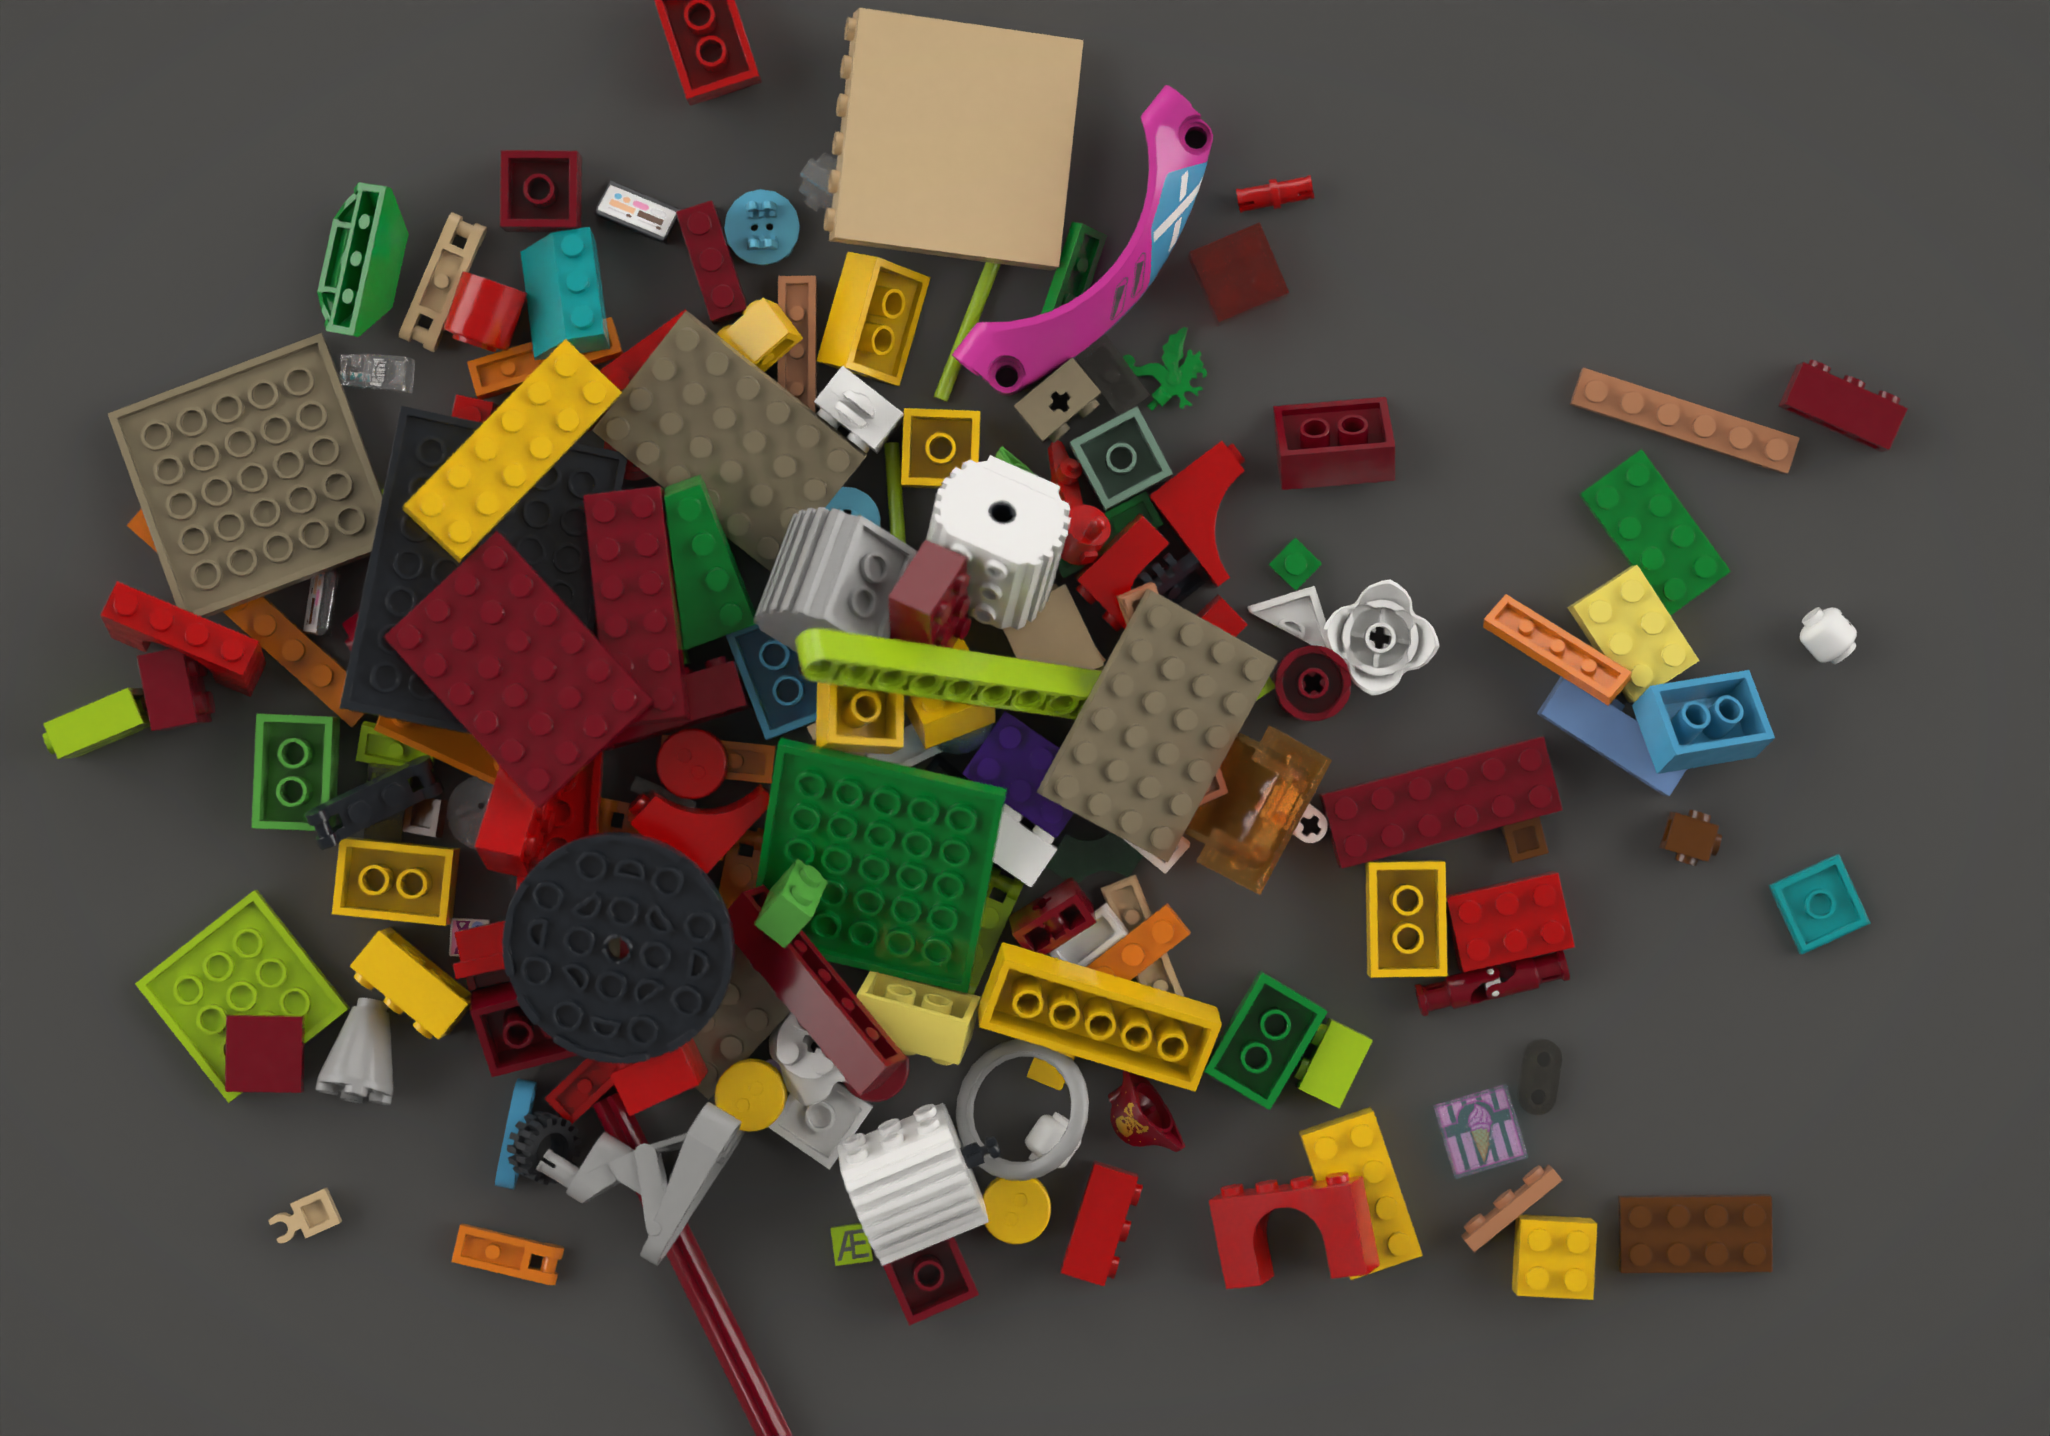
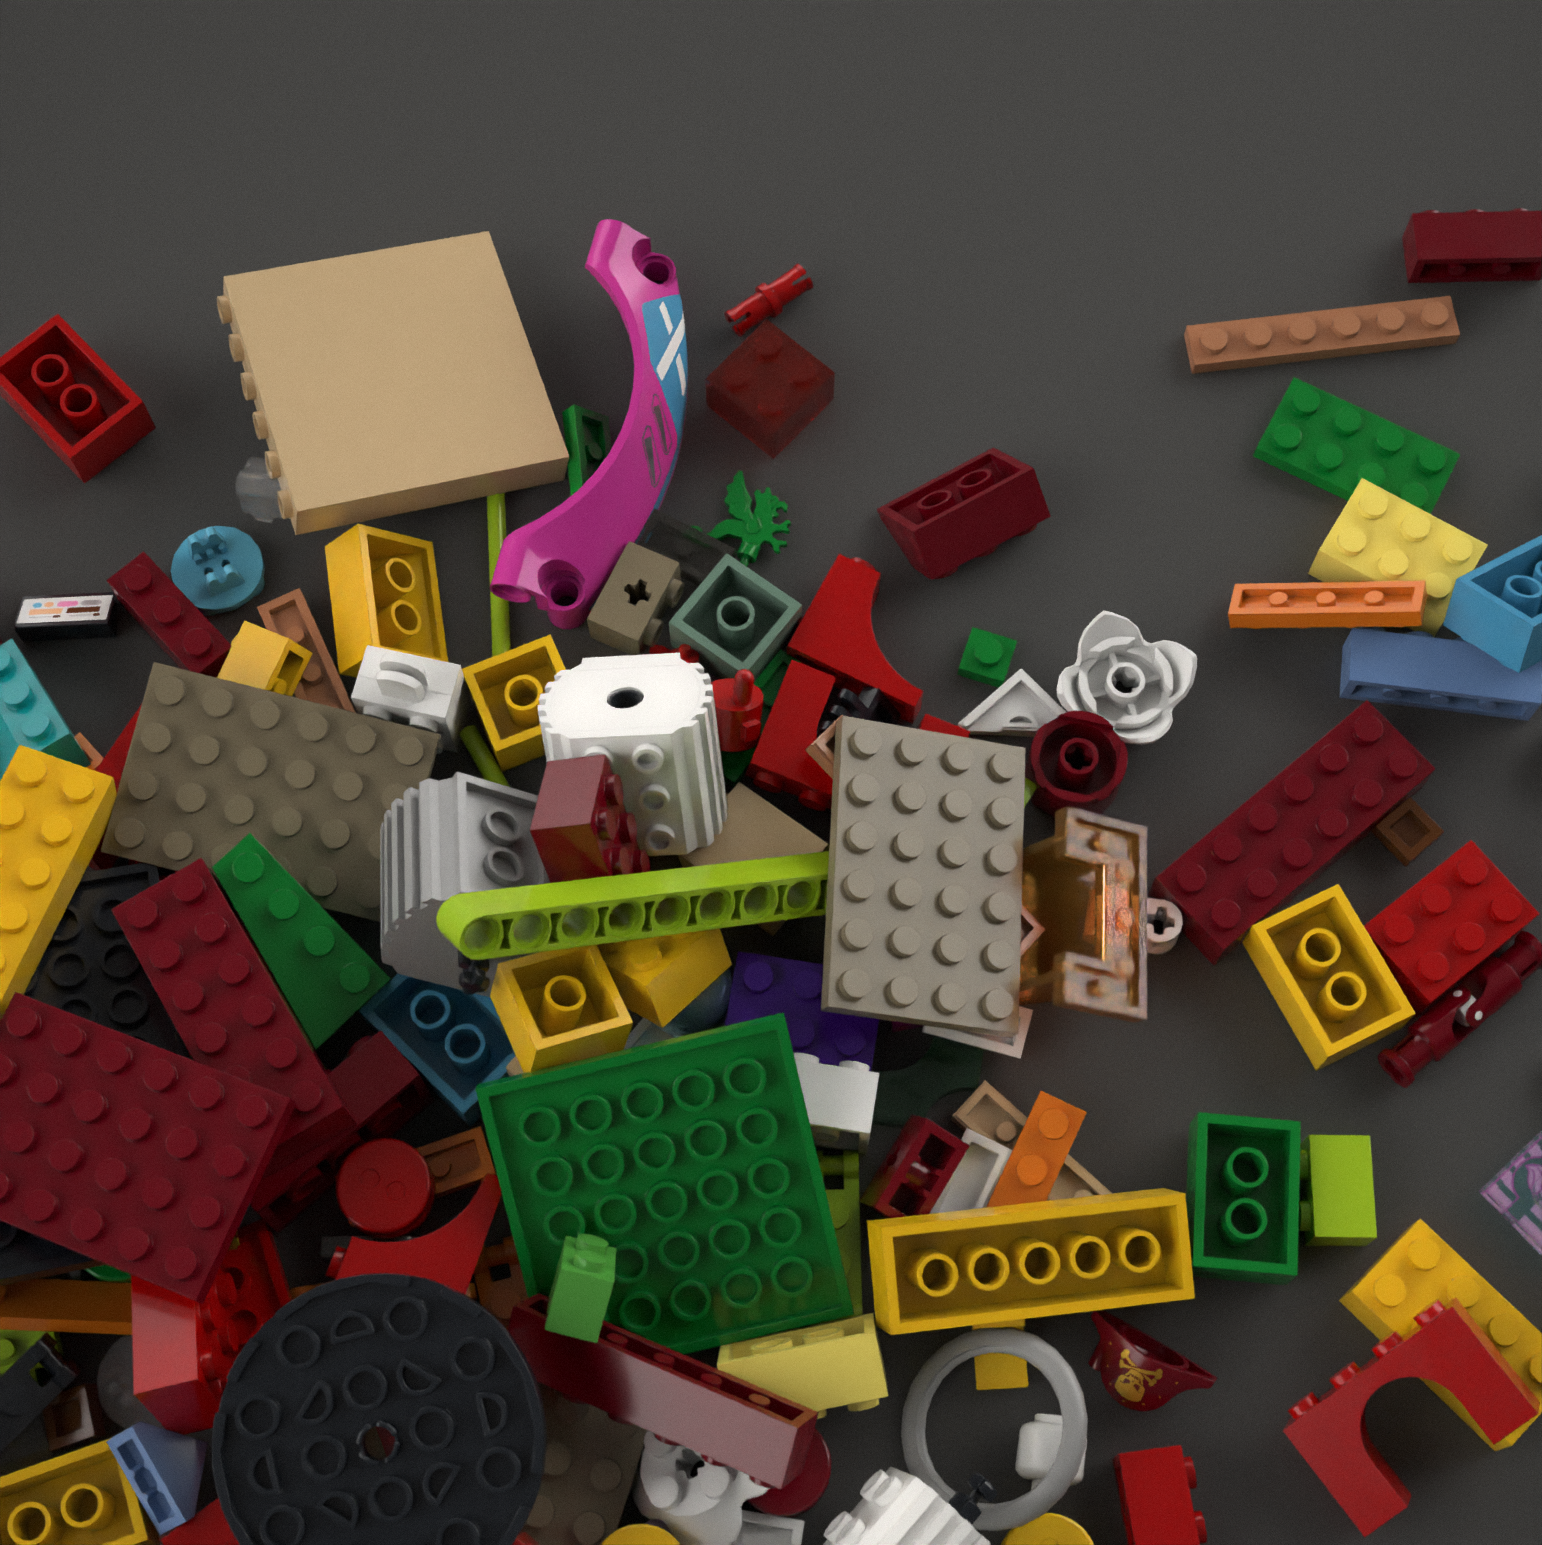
camera: 25 degrees left, 20 degrees down
(471, 889) = (162, 1471): none -> medium blue slope

